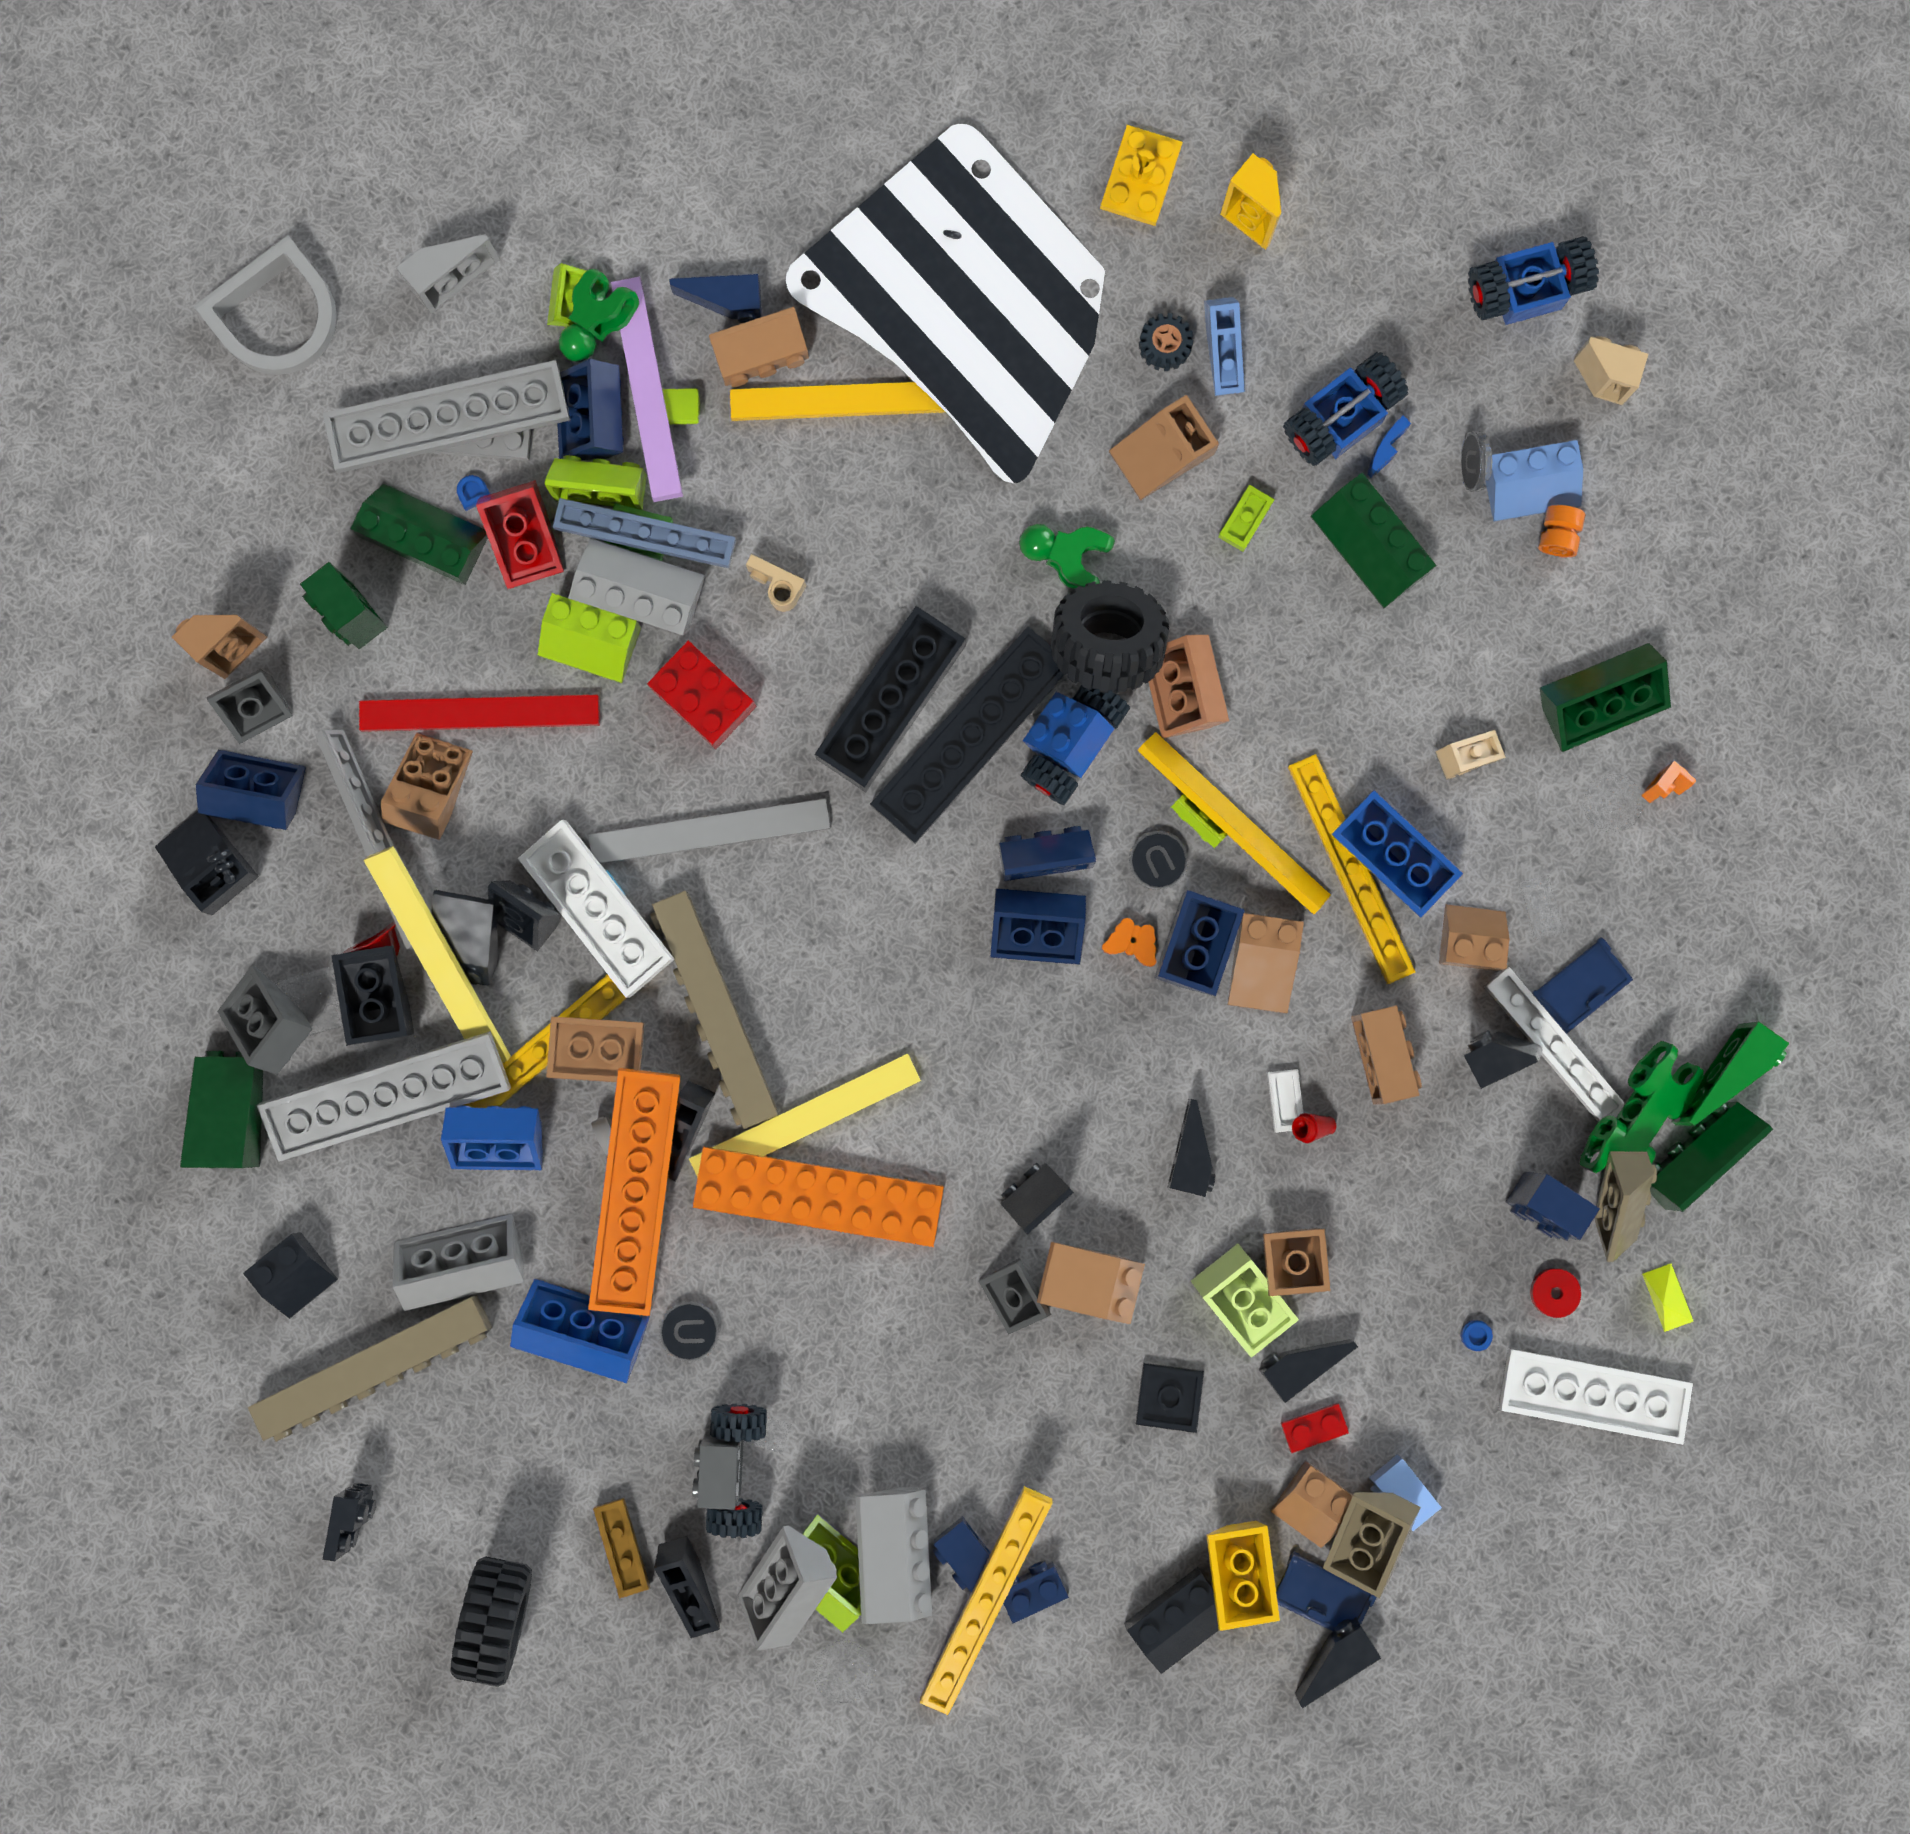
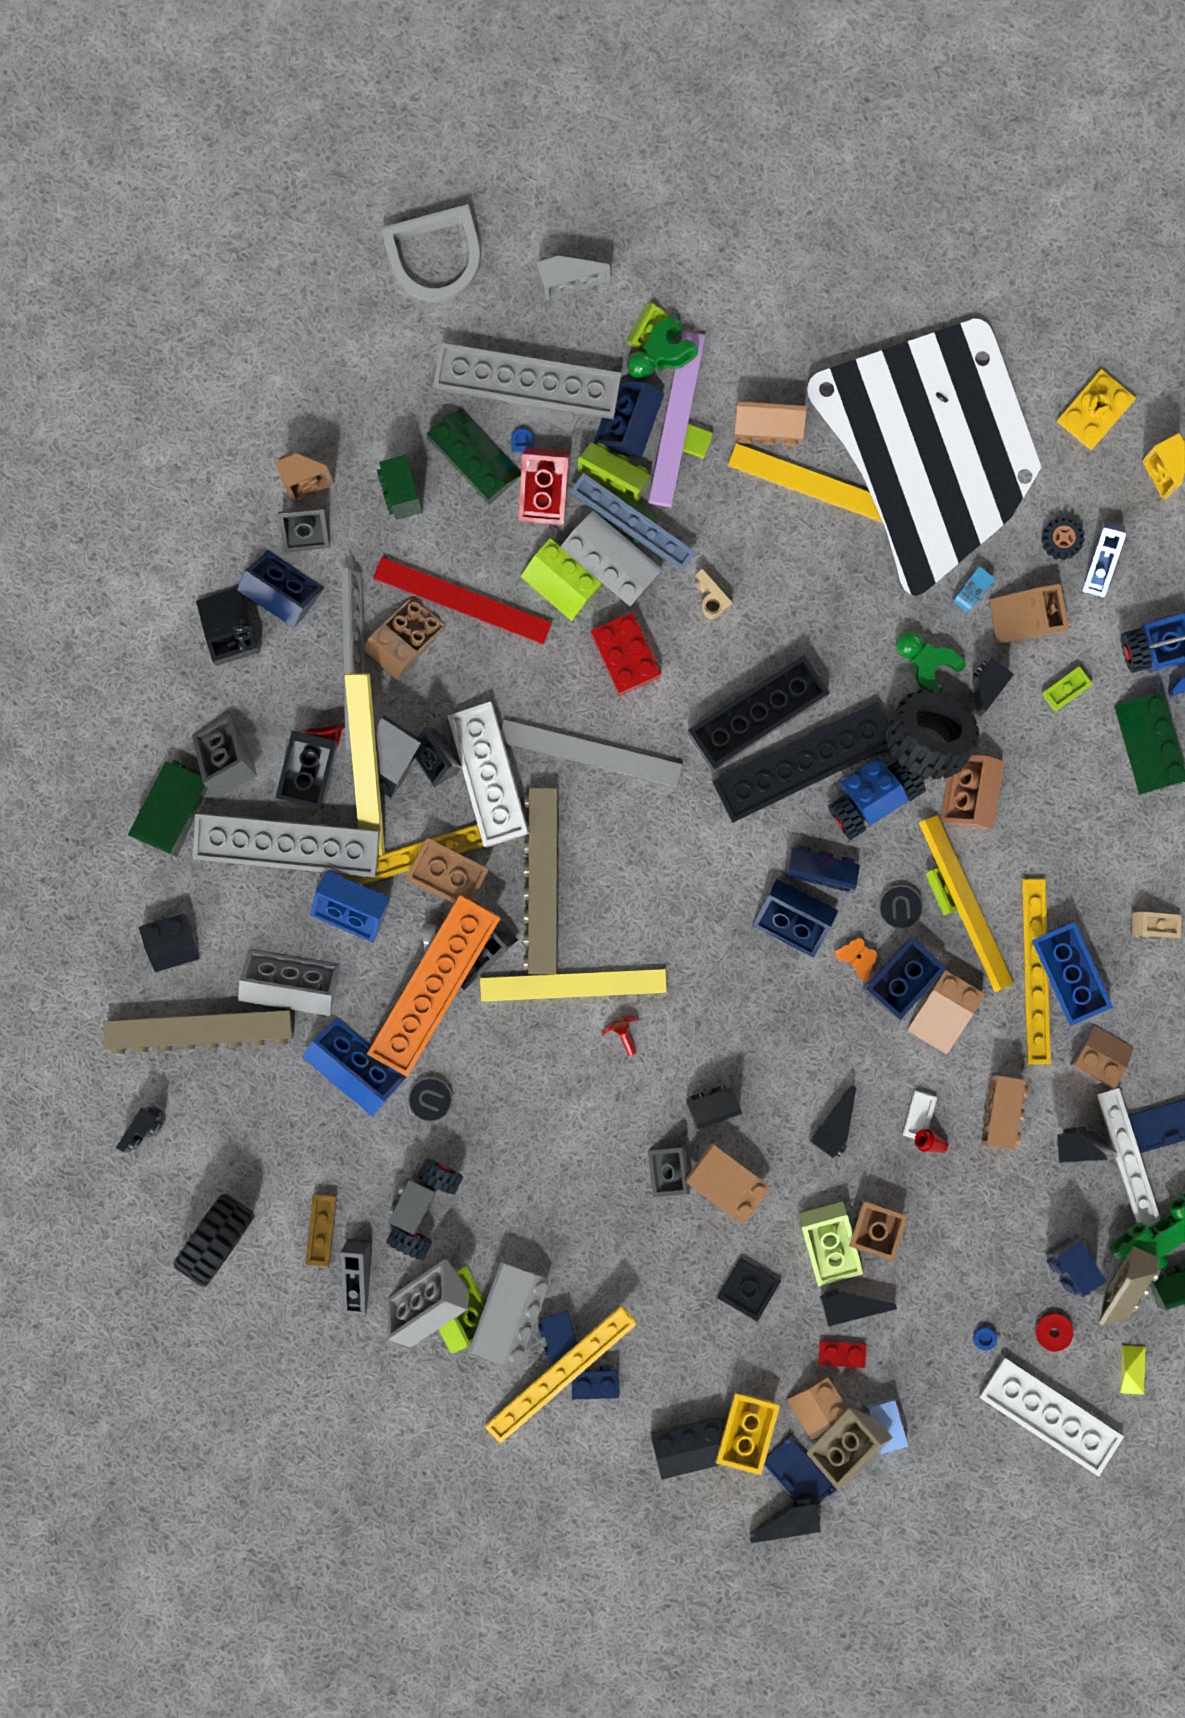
camera: 25 degrees right, 0 degrees up
(728, 295) = (762, 375): dark blue slope -> none
(818, 1196) = (560, 1043): orange plate -> none
(884, 1148) = (621, 1028): none -> red plant
(1086, 445) = (974, 589): none -> dark azure leg
(1151, 548) = (988, 684): none -> black slope

